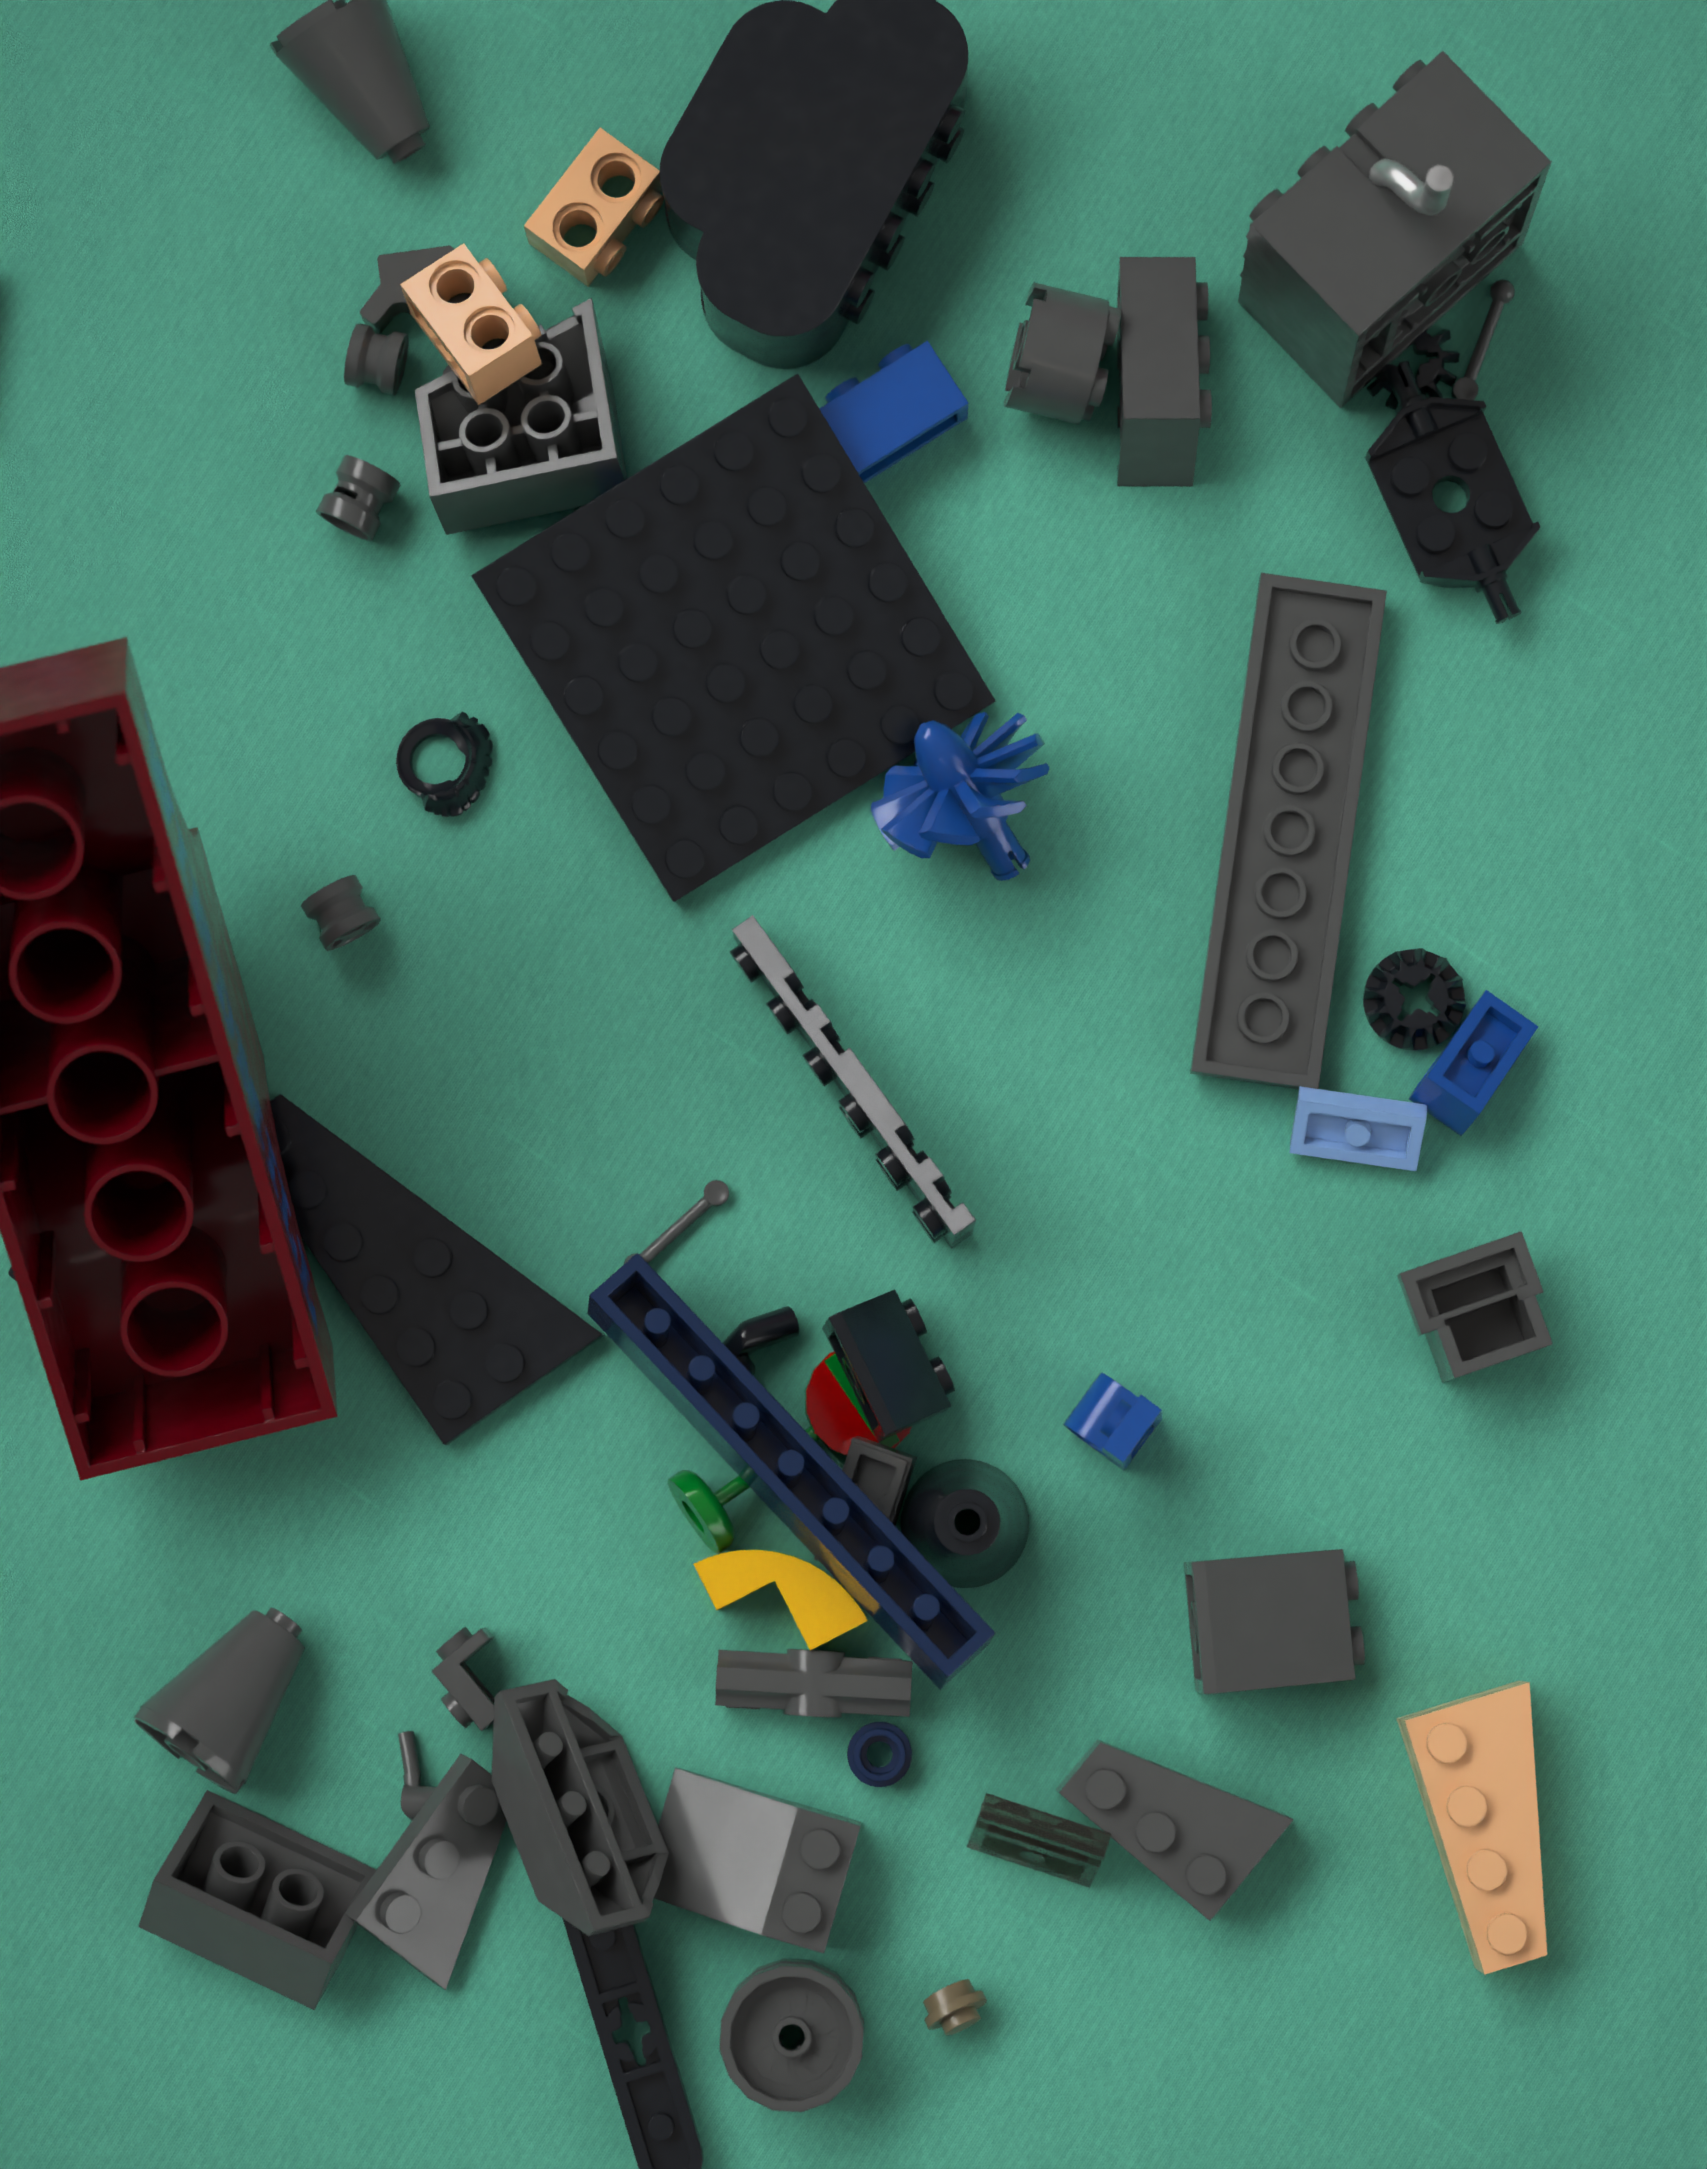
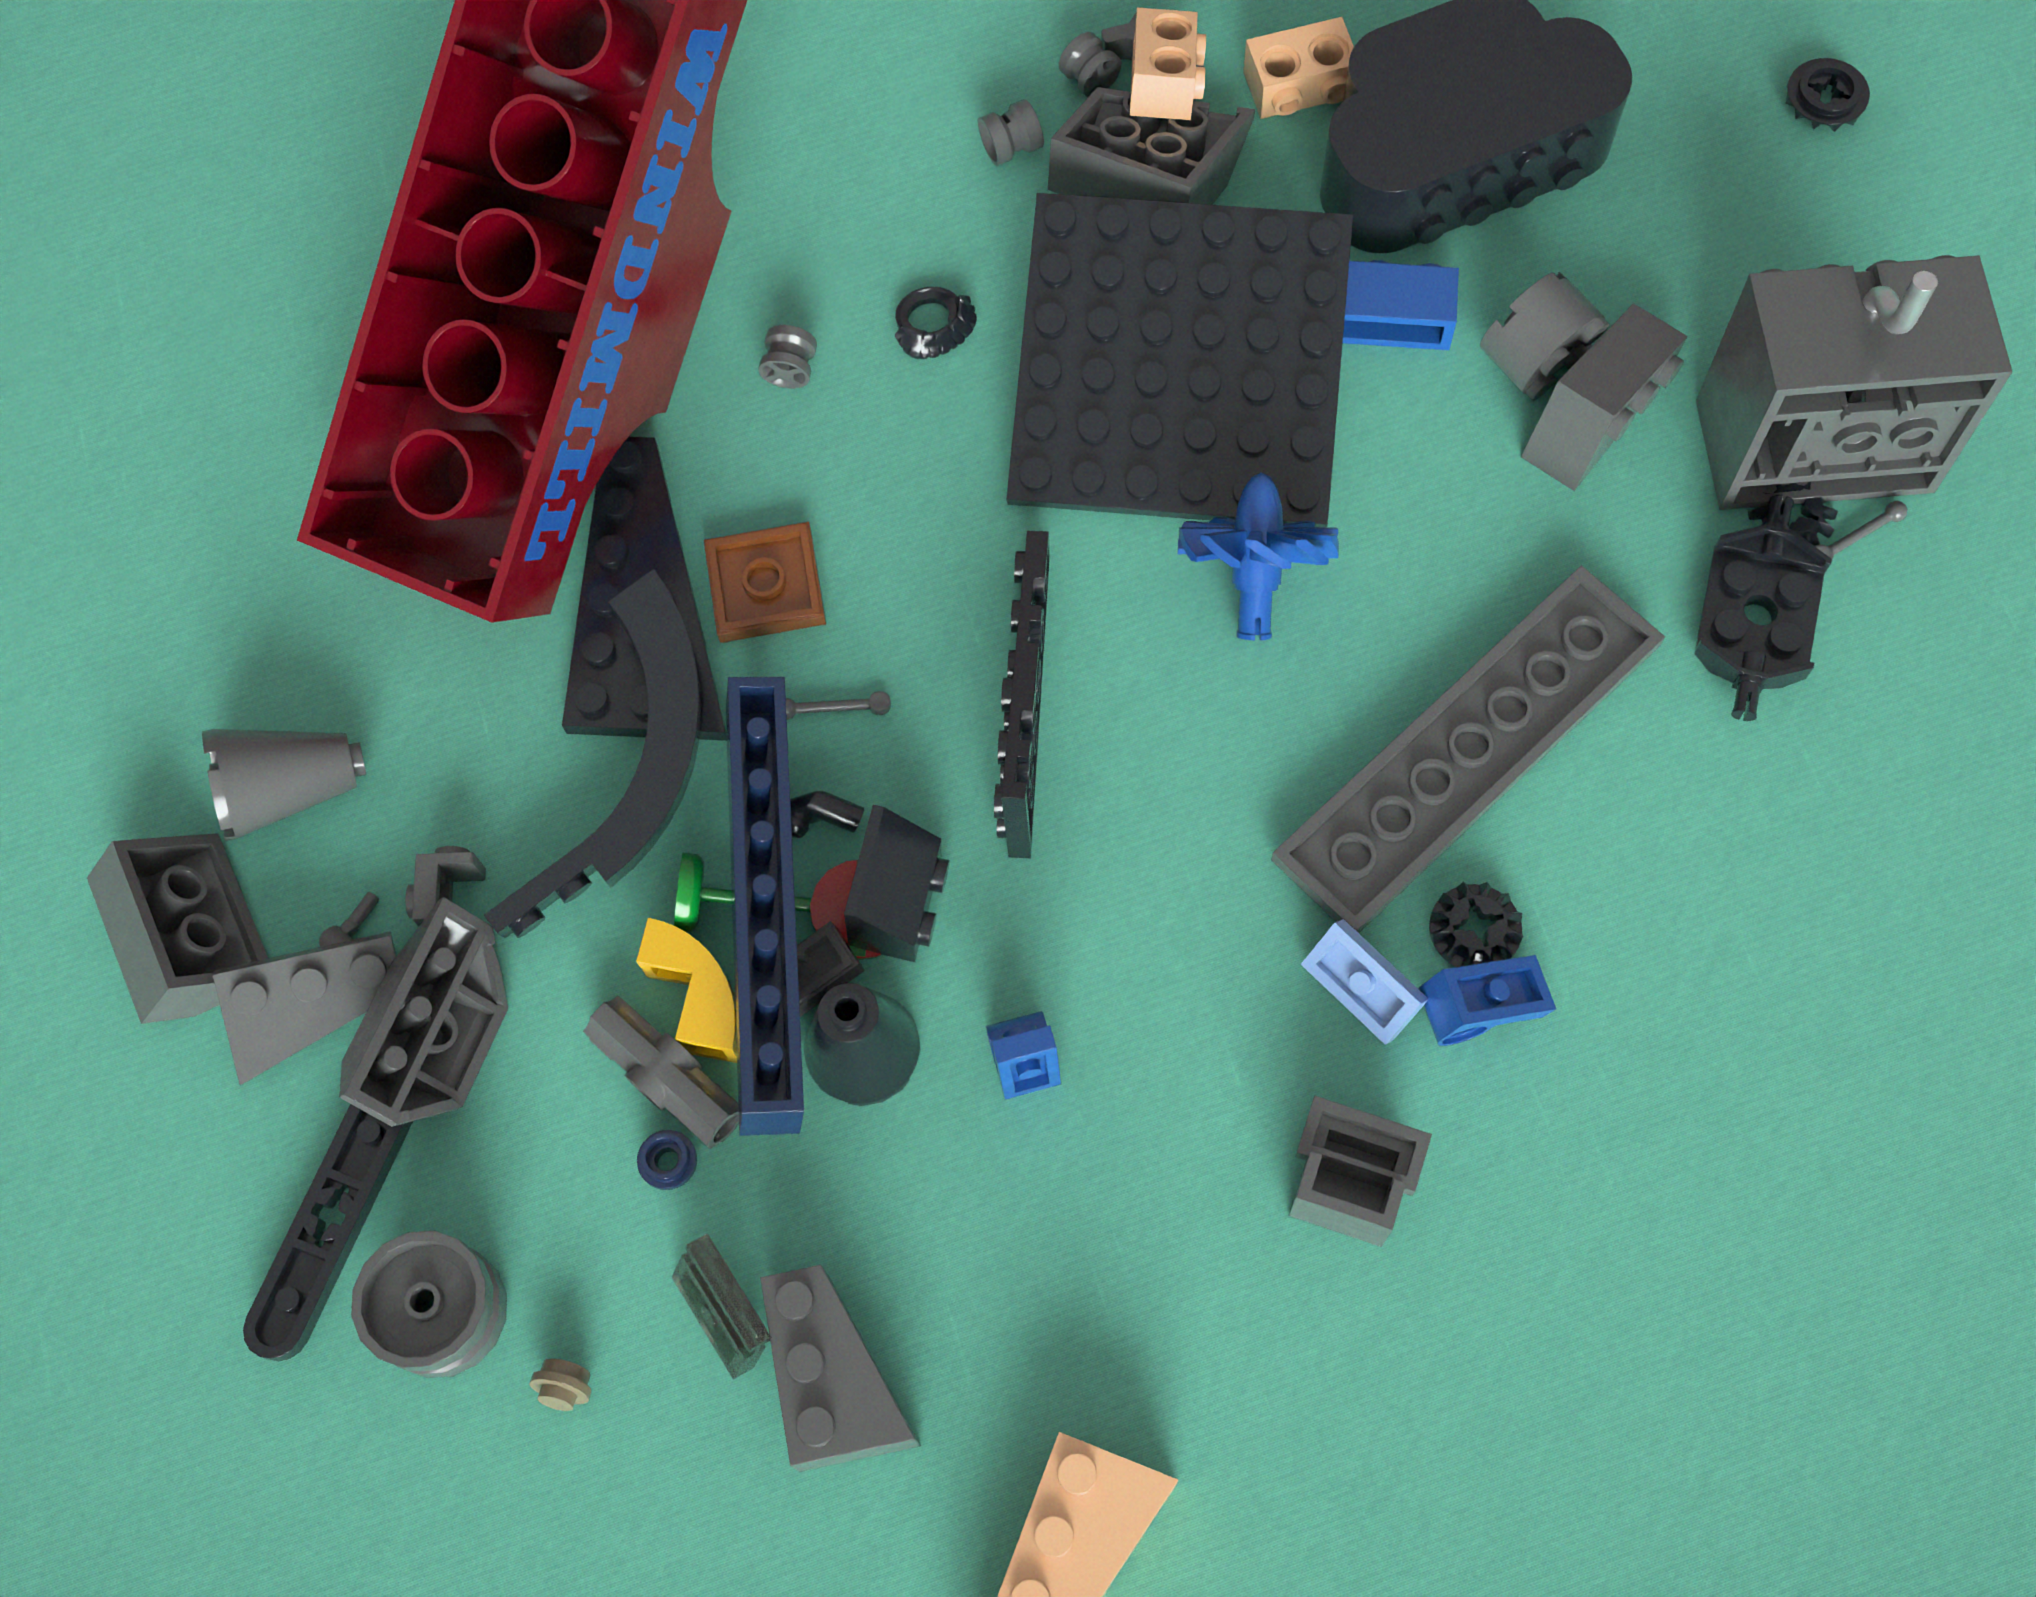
camera: 40 degrees right, 15 degrees down
(509, 1157) = (764, 582): none -> dark orange tile
(586, 1420) = (661, 776): none -> black arch
(754, 1859) = (518, 1166): dark grey slope -> none
(1272, 1621) = (1019, 1279): dark grey slope -> none

